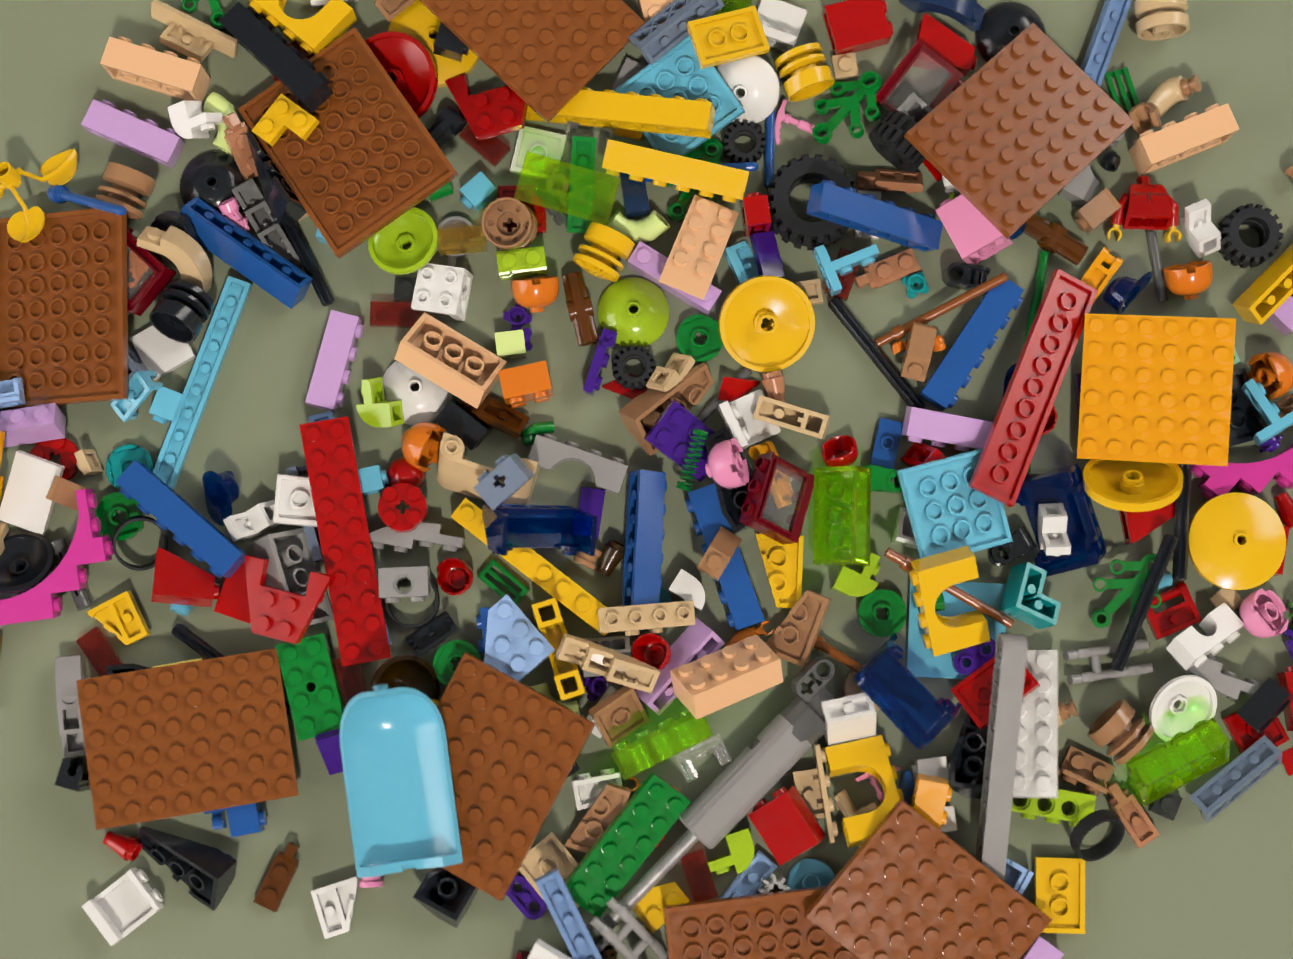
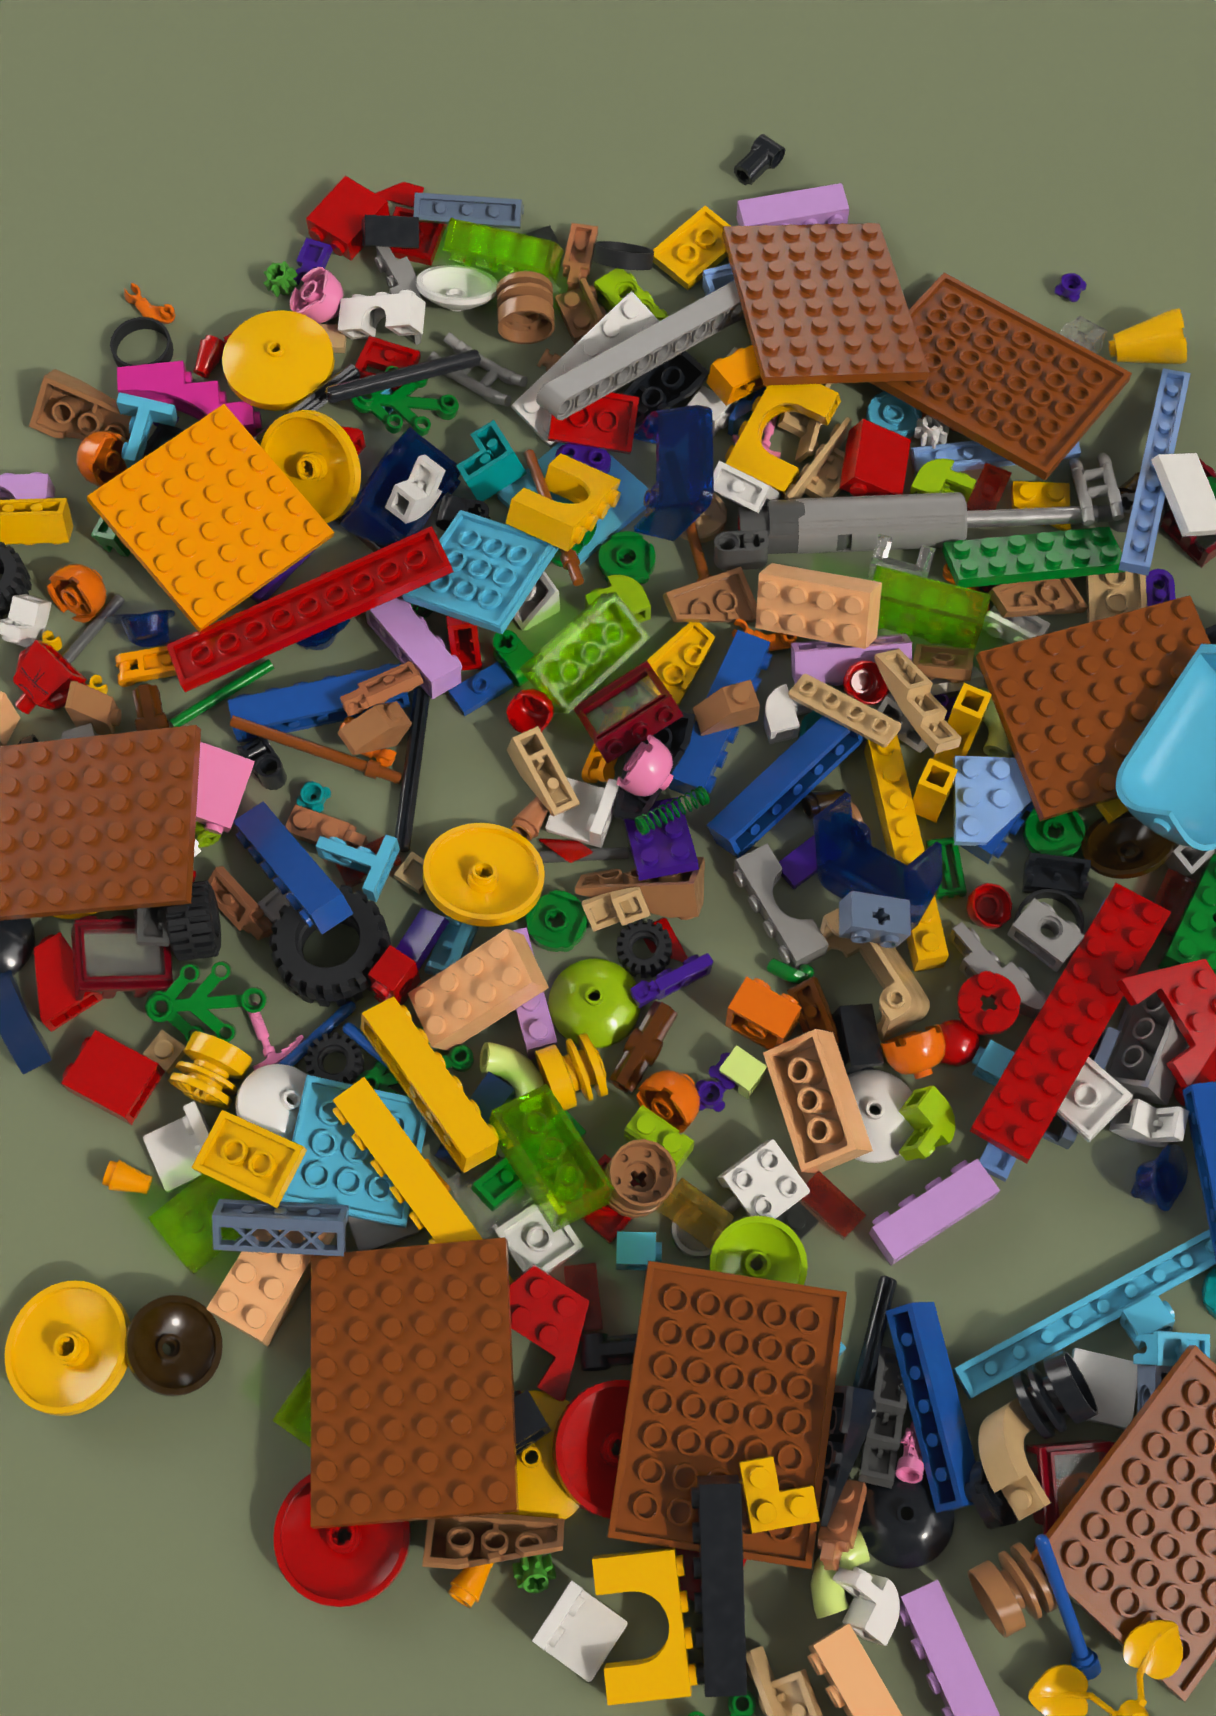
camera: 130 degrees left, 15 degrees down
(937, 377) = (381, 688): none -> nougat hinge

